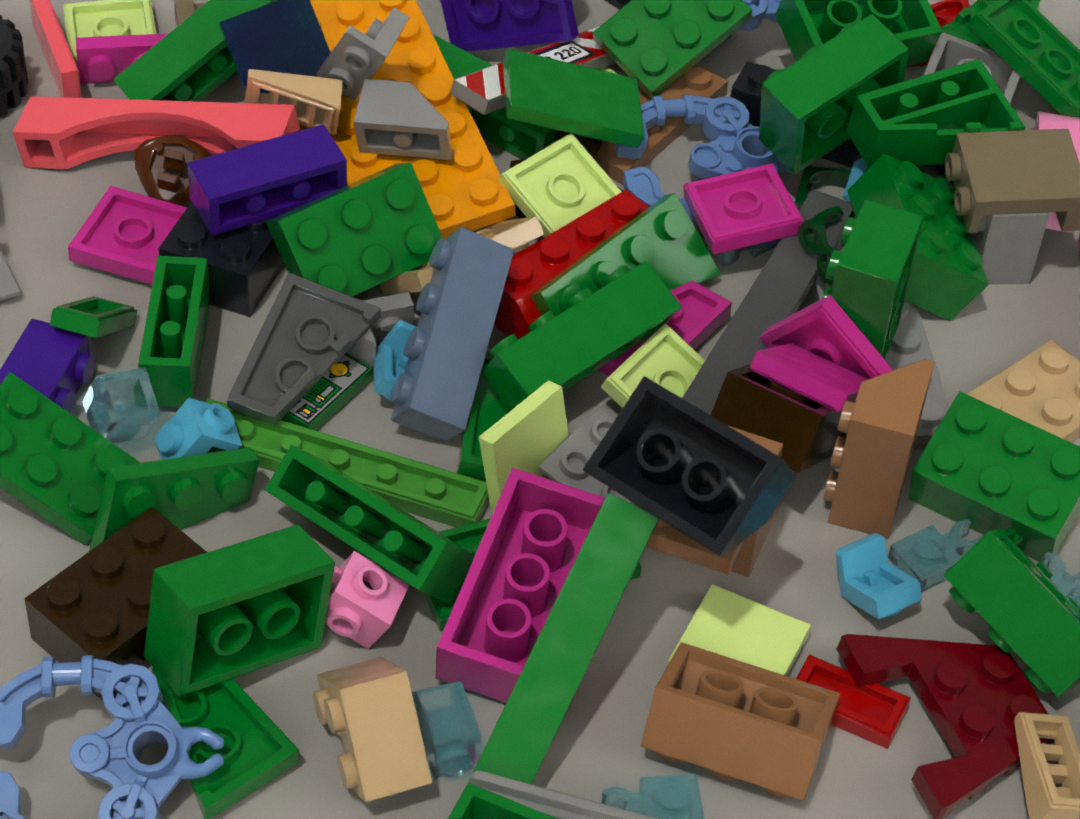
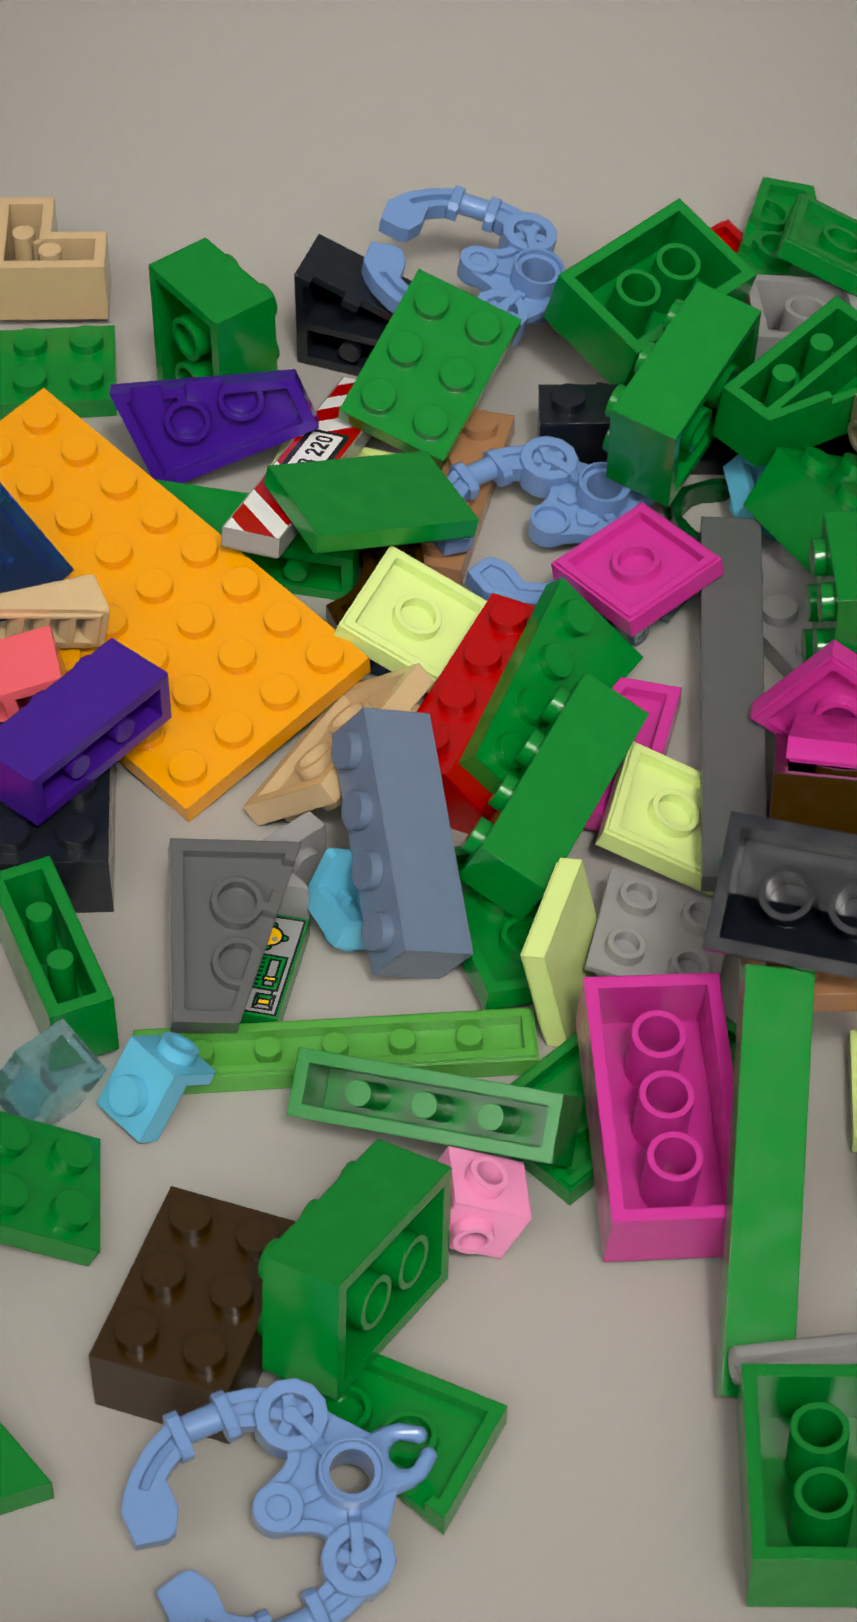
camera: 20 degrees left, 0 degrees up
(178, 488) = (178, 1152): green wing -> none
(359, 232) = (215, 757): green brick -> none
(361, 54) = (108, 529): light grey bracket -> none
(378, 727) = (589, 1336): tan brick -> none
(400, 122) = (188, 601): light grey slope -> none
(447, 729) = (655, 1318): clear light blue brick -> none
(813, 227) = (732, 576): dark green cap -> none

